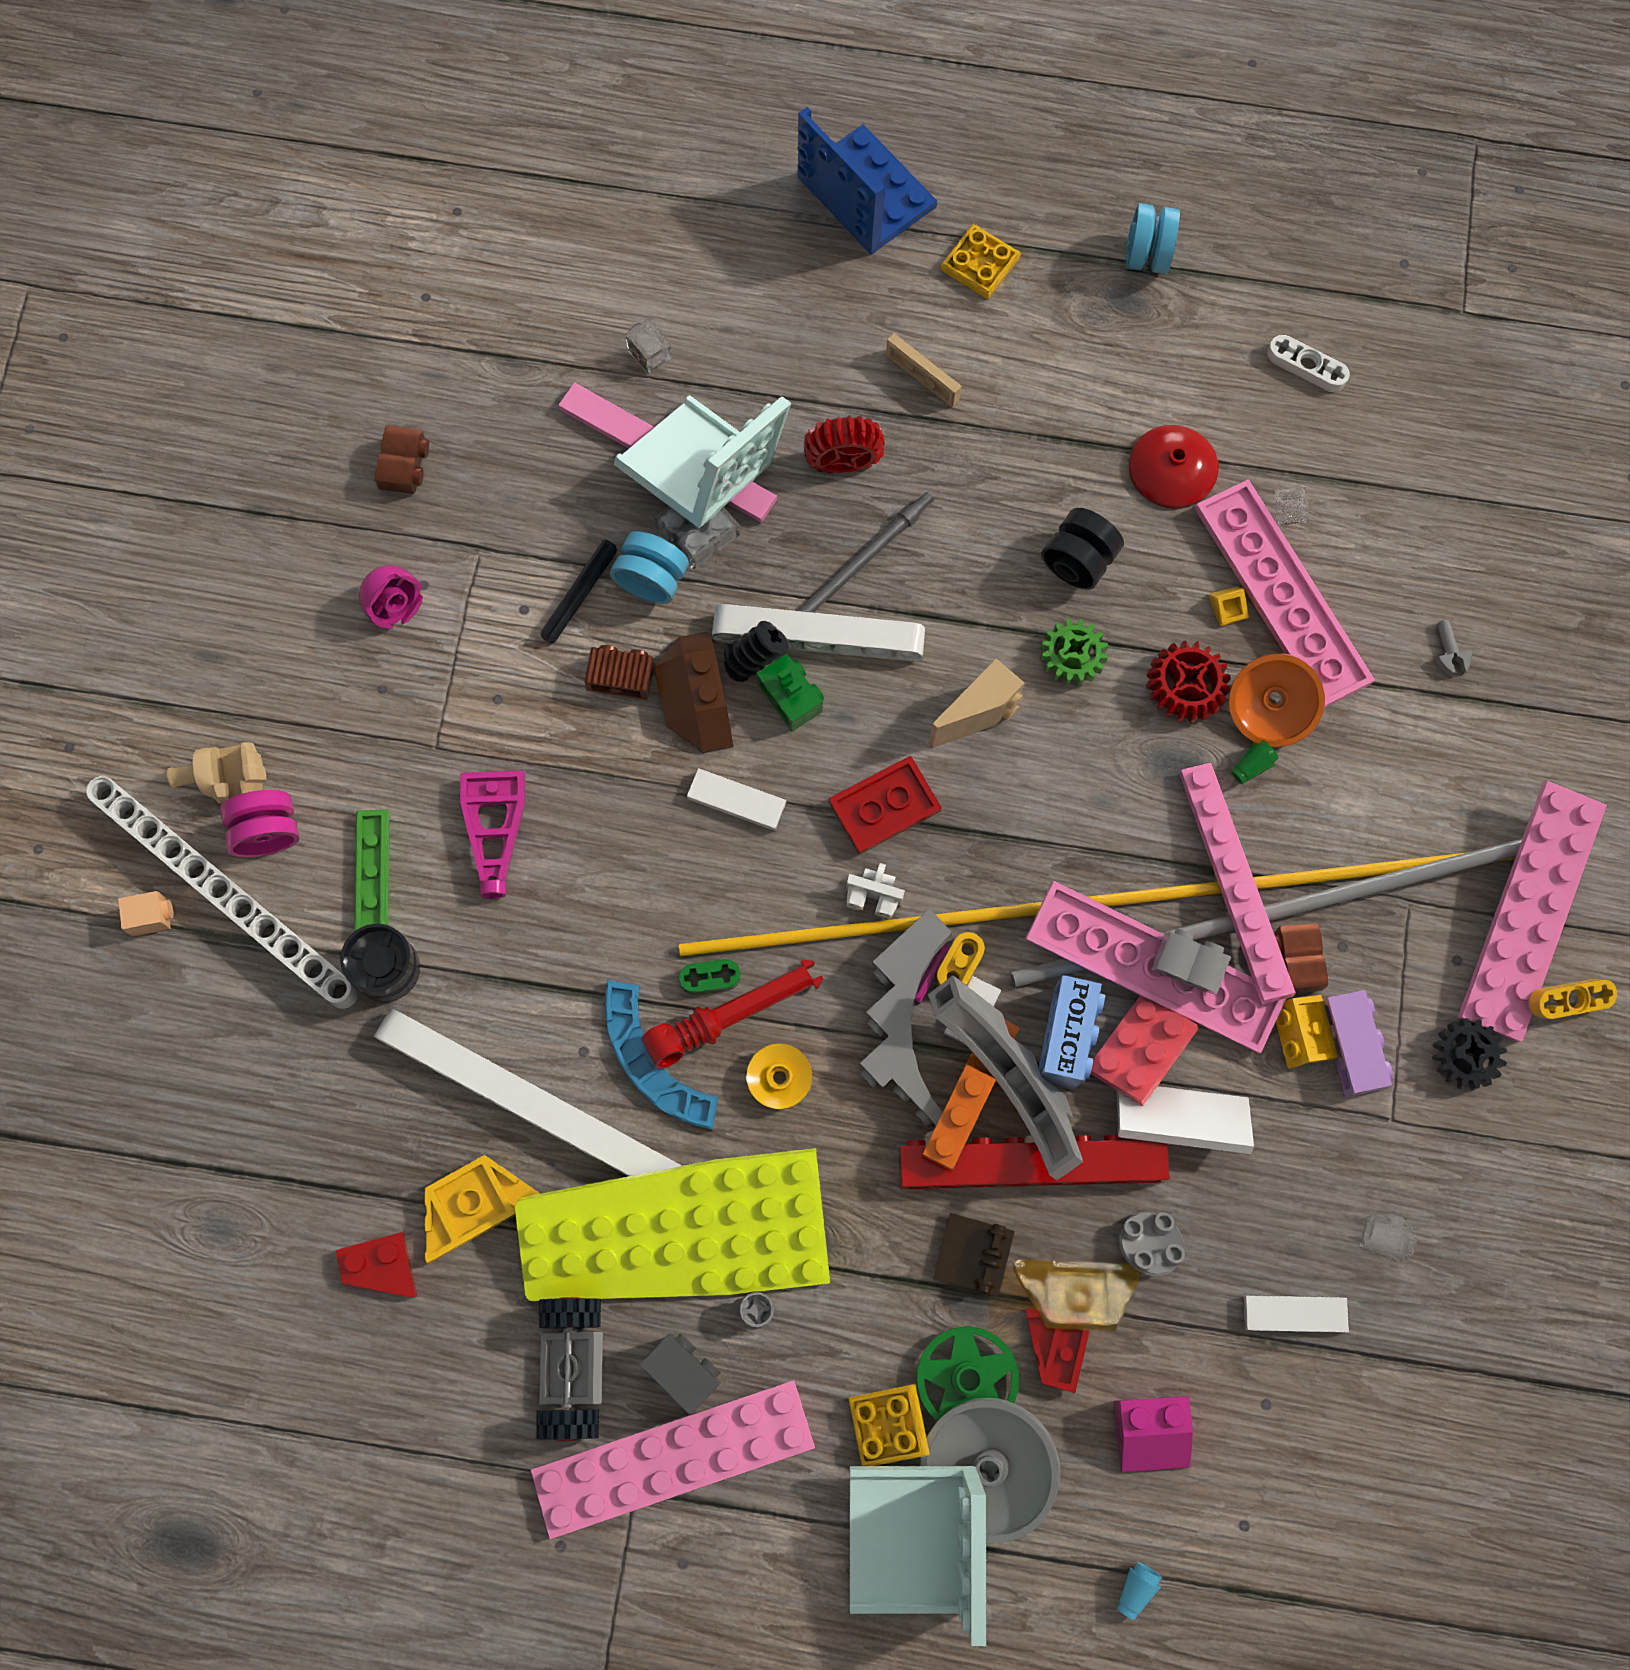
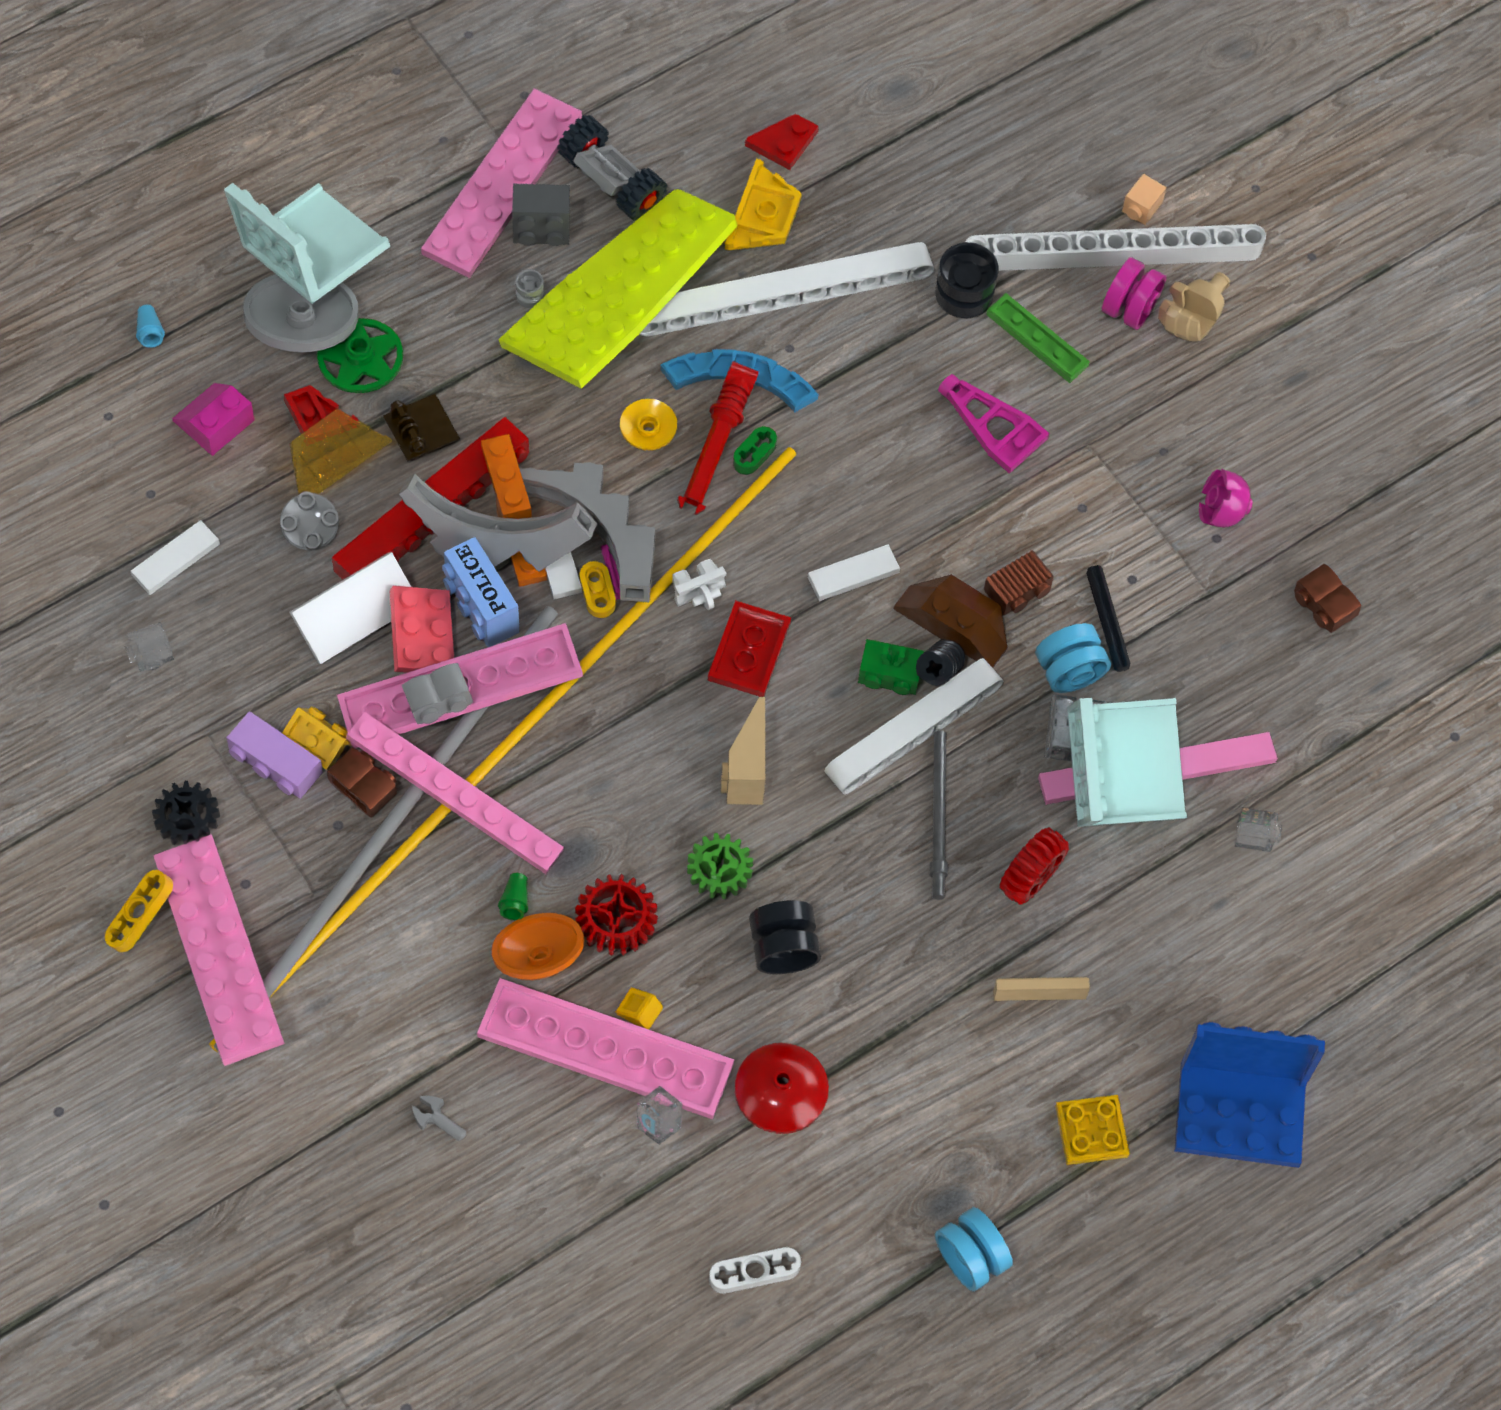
camera: 135 degrees right, 10 degrees down
(889, 1426) = (386, 290): yellow tile -> none

